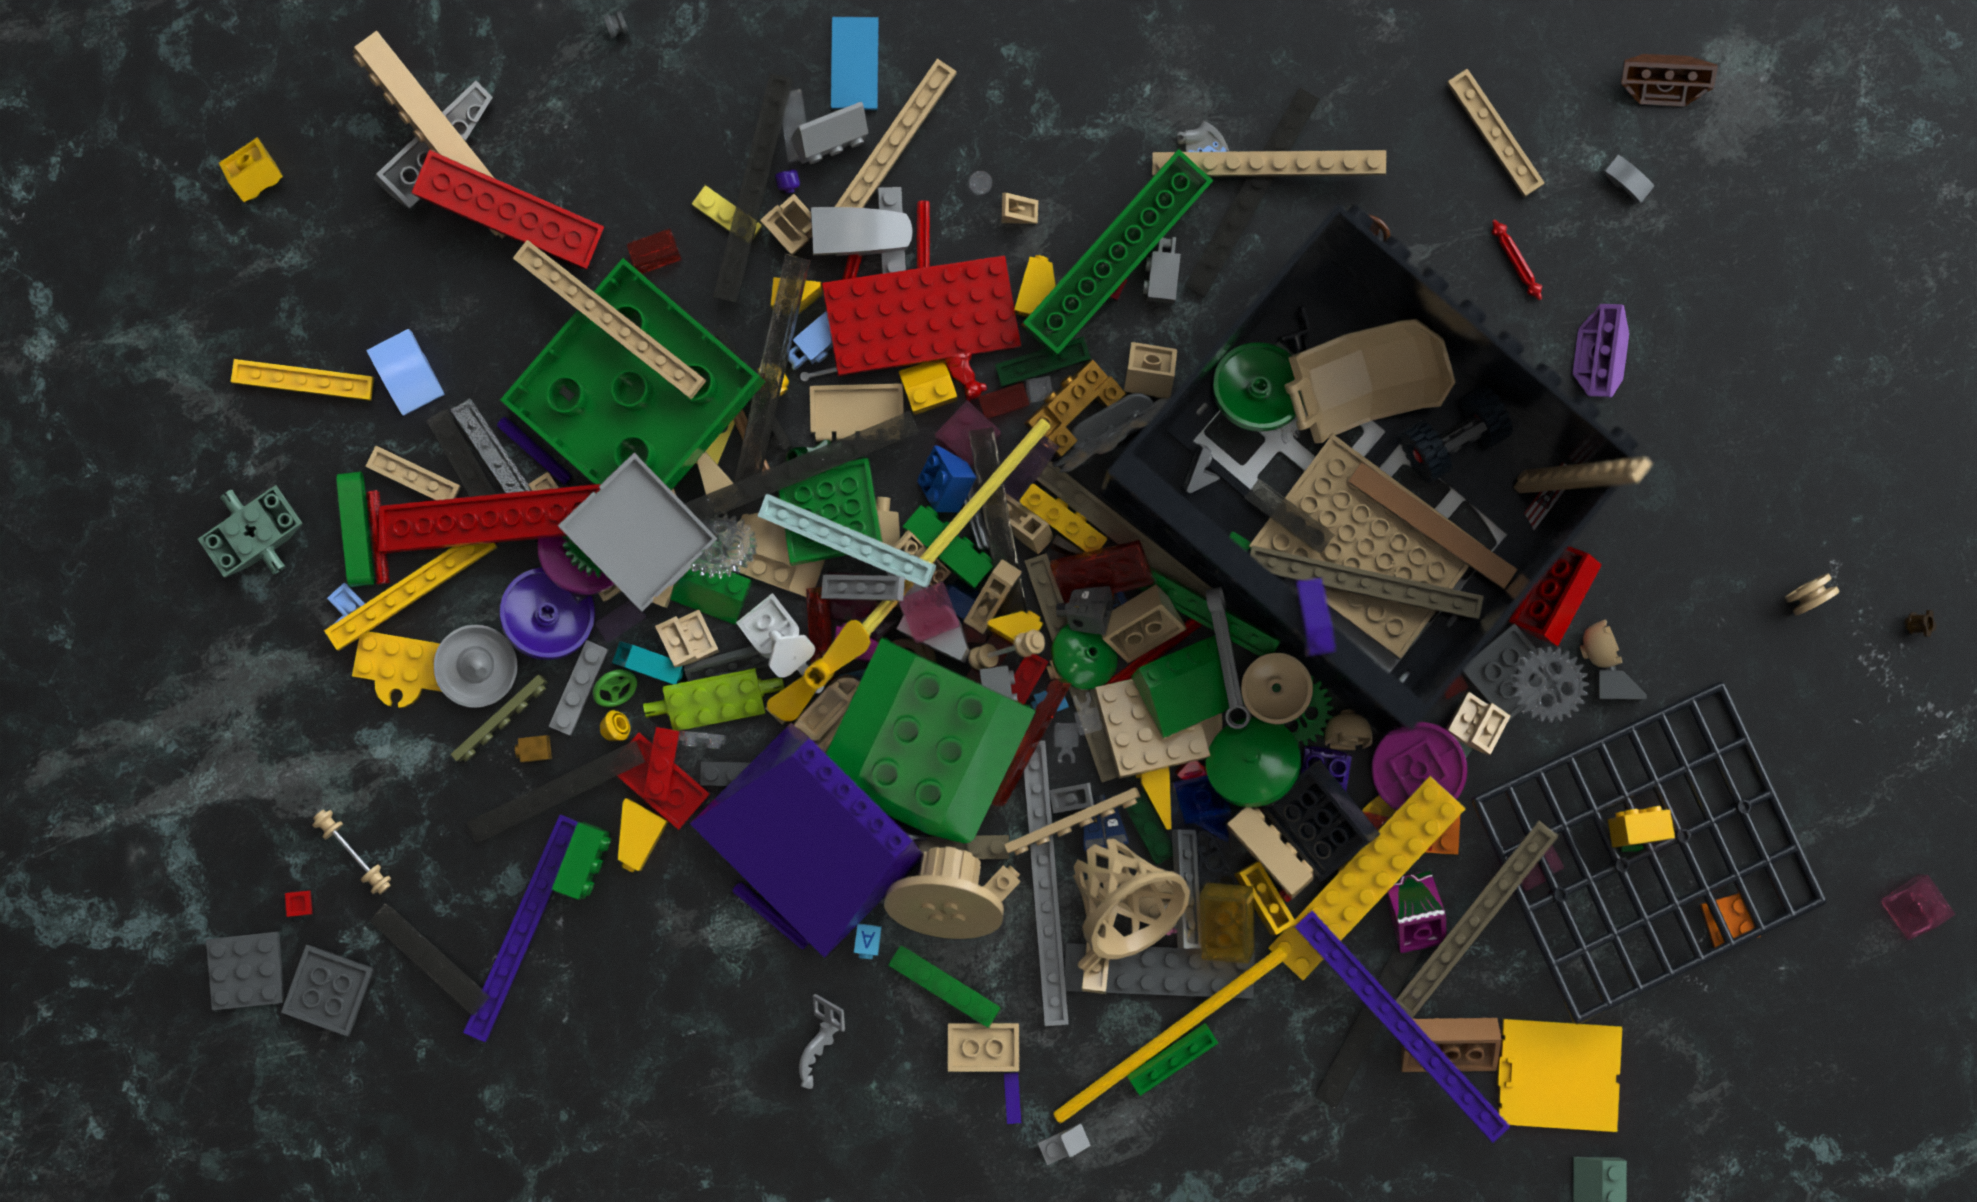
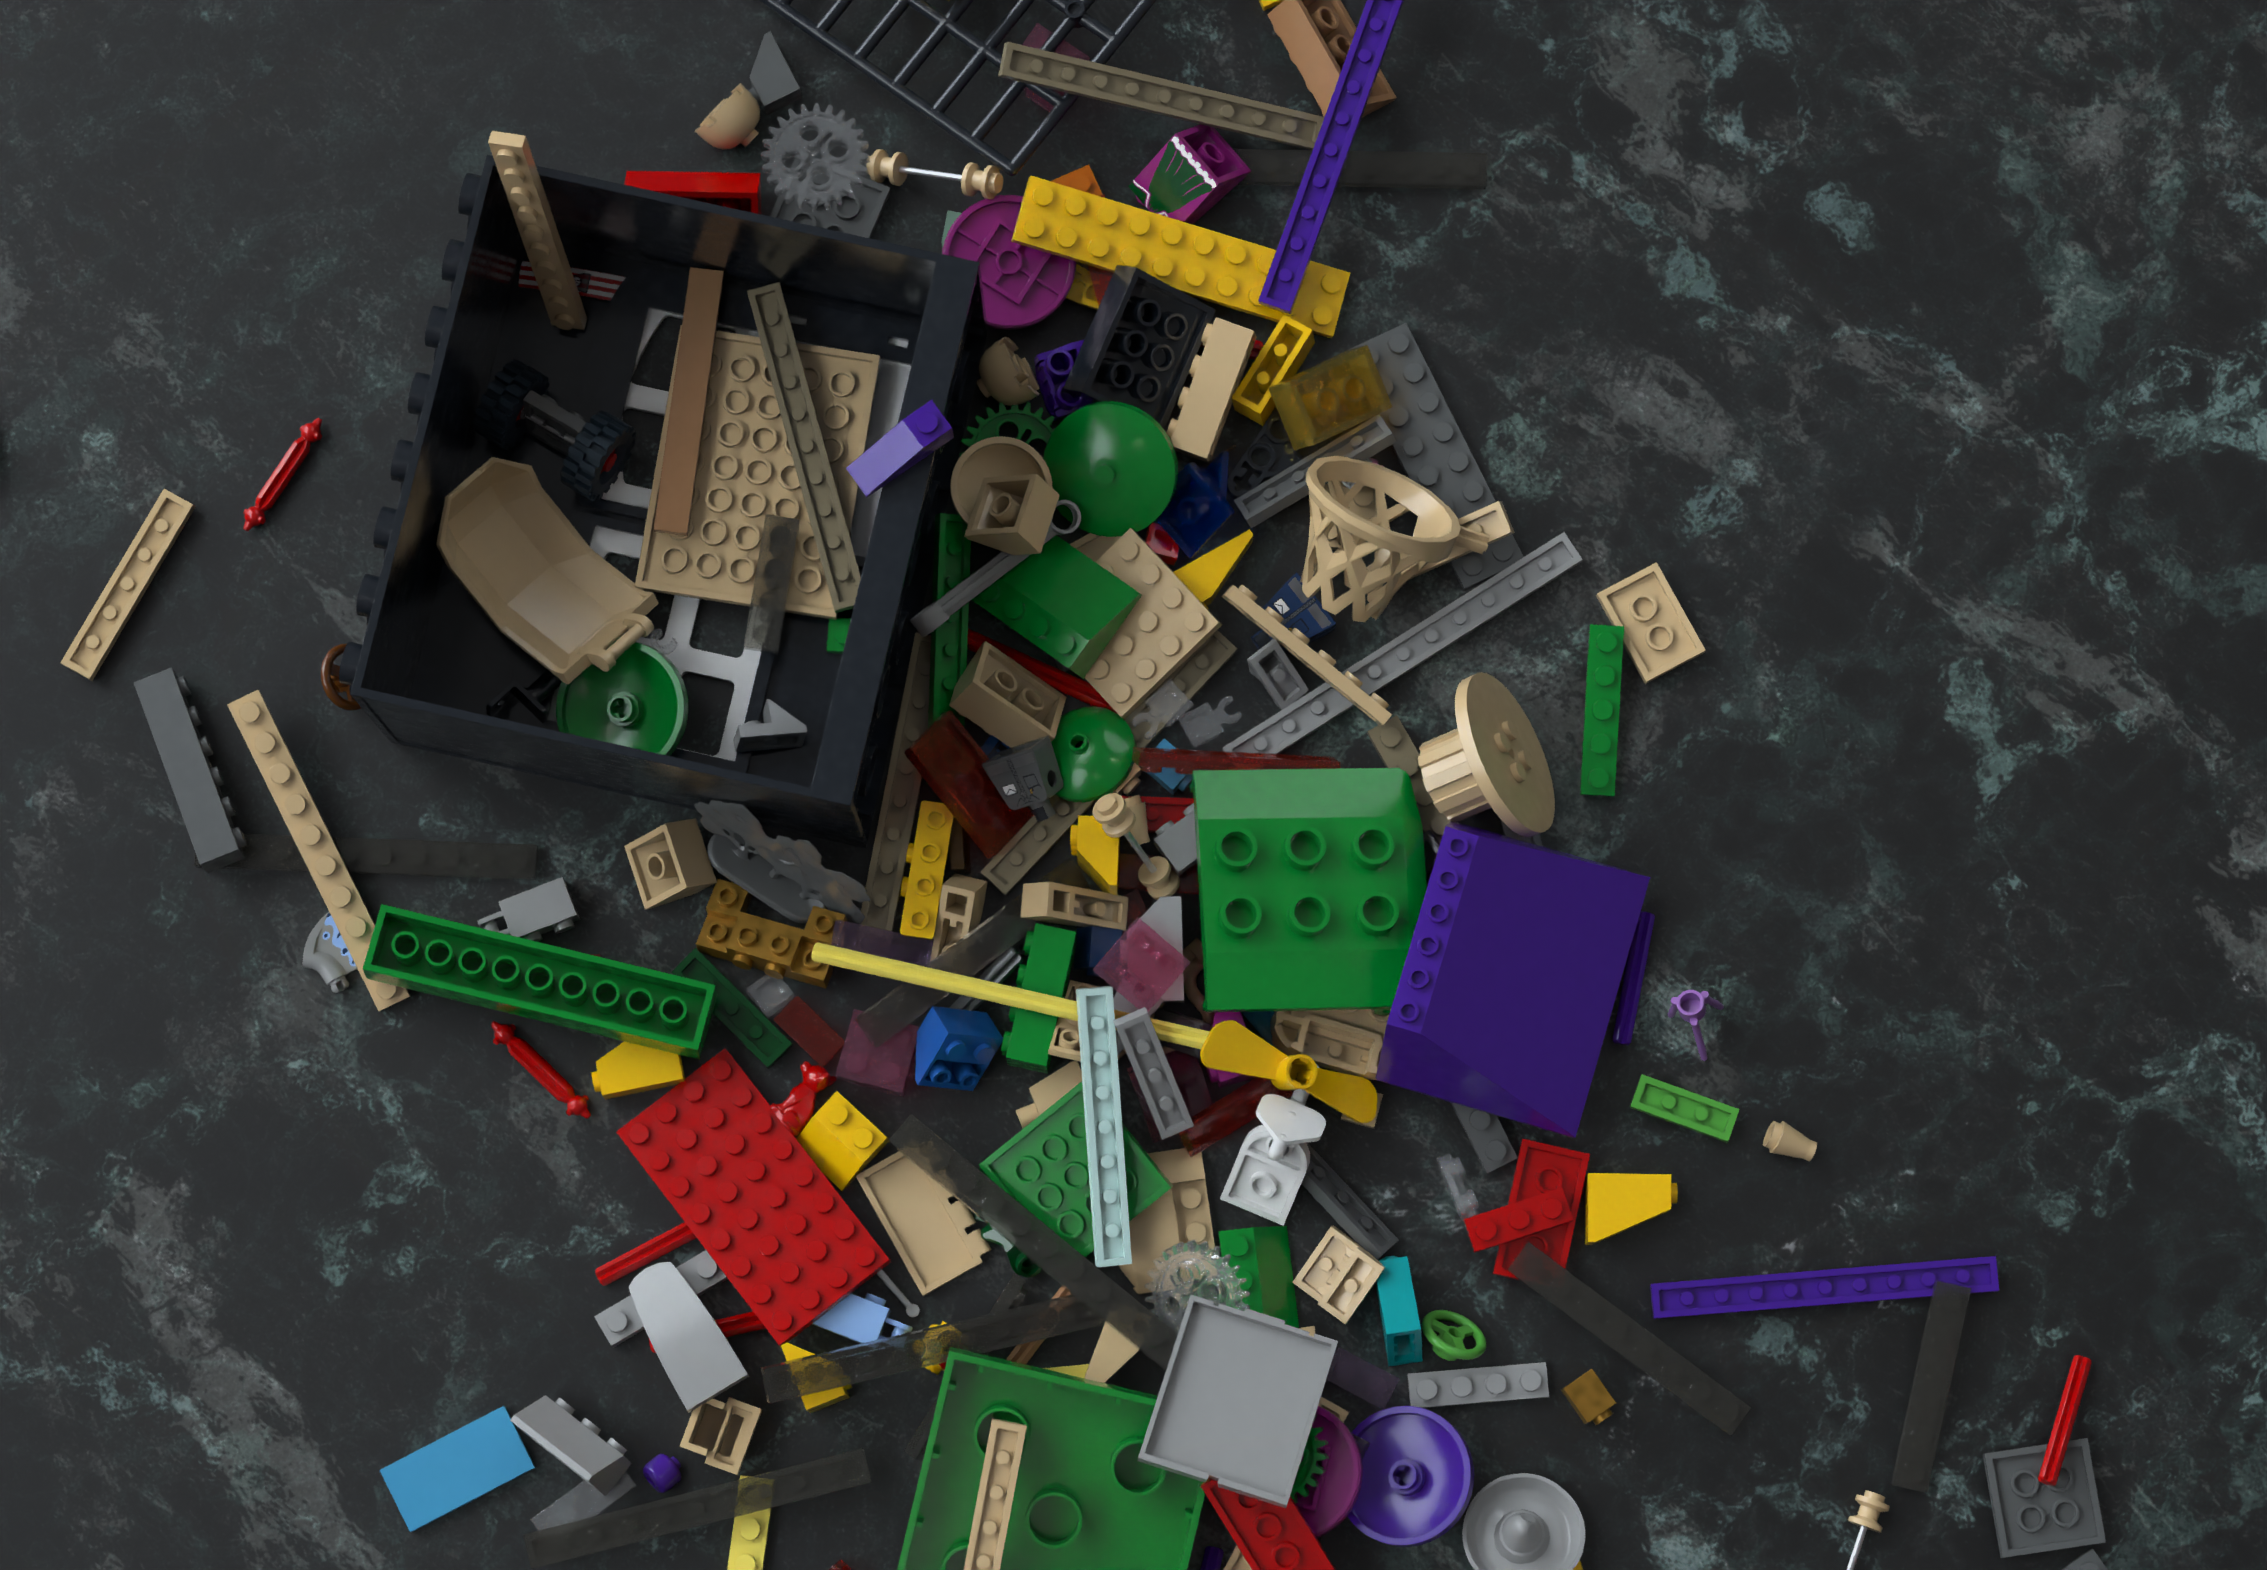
camera: 115 degrees left, 5 degrees down
(364, 1028) = (2064, 1420): none -> red axle
(500, 719) = (1575, 1464): olive plate -> none
(582, 861) = (1698, 1253): green brick -> none
(615, 726) = (1503, 1308): yellow cone -> none
(623, 953) = (1787, 1141): none -> tan cone
(675, 902) = (1684, 1108): none -> bright green plate
(714, 699) = (1398, 1198): lime plate -> none
(729, 938) = (1692, 1009): none -> medium lavender plant
(823, 1038) = (1750, 828): light grey piece -> none
(867, 940) = (1598, 837): medium azure brick -> none
(898, 136) = (532, 1357): tan plate -> none
(980, 182) = (534, 1215): clear plate -> none
(1003, 882) = (1432, 707): tan brick -> none
(1012, 1098) = (1693, 555): dark purple piece -> none
(1019, 209) = (545, 1145): tan slope -> none
(1032, 663) = (1140, 828): none -> tan cone
(1064, 1144) = (1714, 461): light grey slope -> none
(1066, 230) = (540, 1069): none -> red wheel
(1150, 829) = (1265, 554): dark green plate -> none
(1170, 1035) = (1508, 399): yellow axle -> none
(1172, 1059) = (1536, 381): green plate -> none
(1254, 684) = (1013, 513): none -> tan slope
(1359, 112) = (190, 770): none -> dark grey brick
(1477, 723) = (913, 215): tan slope -> none
(1482, 772) = (972, 179): none -> tan axle
(1602, 350) = (350, 307): medium lavender wedge -> none
(1628, 177) = (101, 389): slope -> none

